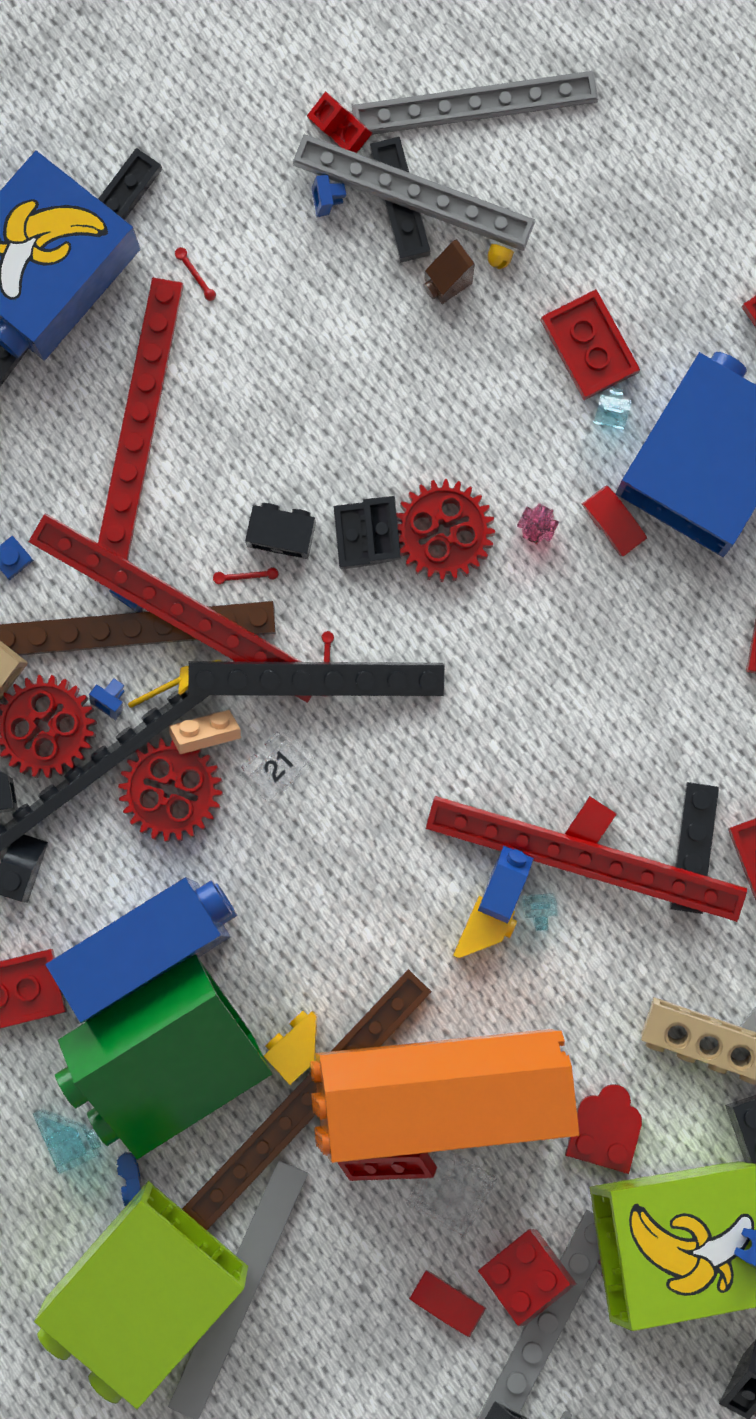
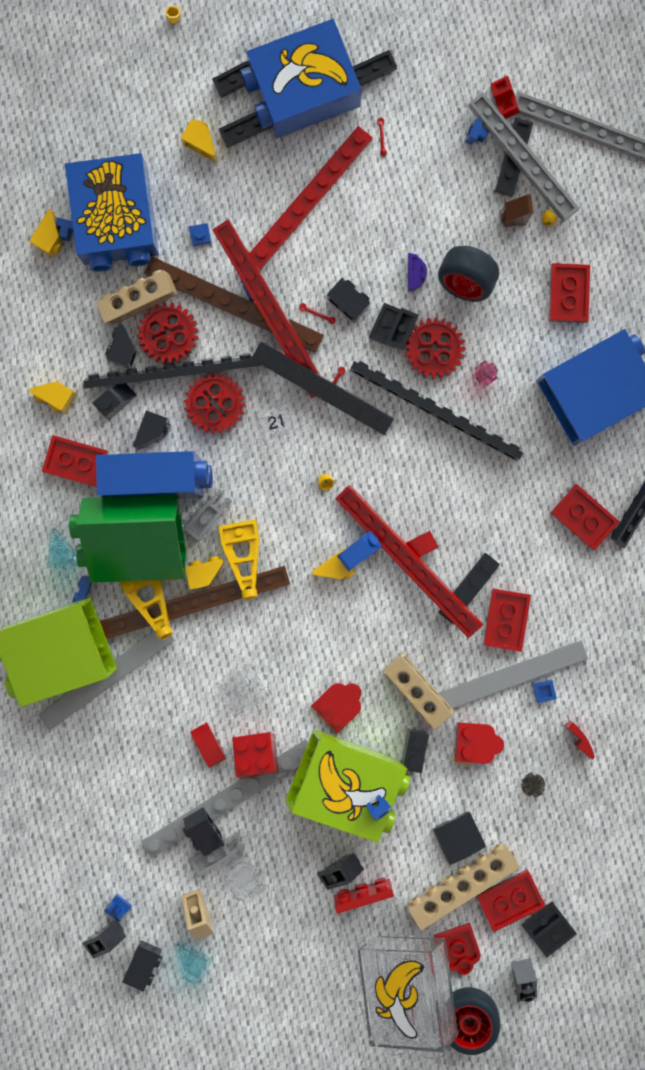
camera: 30 degrees right, 5 degrees up
(99, 880) = (151, 429): none -> black slope
(108, 699) = (209, 337): blue tile -> none
(183, 686) = (251, 349): yellow piece -> none
(201, 1137) = (130, 589): none -> yellow plate
(204, 731) = (249, 383): light nougat plate -> none
(252, 963) = (206, 517): none -> light grey hinge
(314, 960) = (240, 533): none -> yellow plate
(354, 436) = (416, 272): none -> dark purple plate
(393, 1167) = (216, 657): red plate -> none
(404, 814) = (330, 482): none -> yellow hinge
(432, 398) = (468, 273): none -> black wheel
(443, 1095) = (264, 639): orange panel -> none
(511, 617) = (444, 414): none -> black plate
(539, 908) = (370, 573): clear light blue tile -> none
(613, 409) = (561, 334): clear light blue tile -> none
(614, 520) = (527, 394): red slope -> none

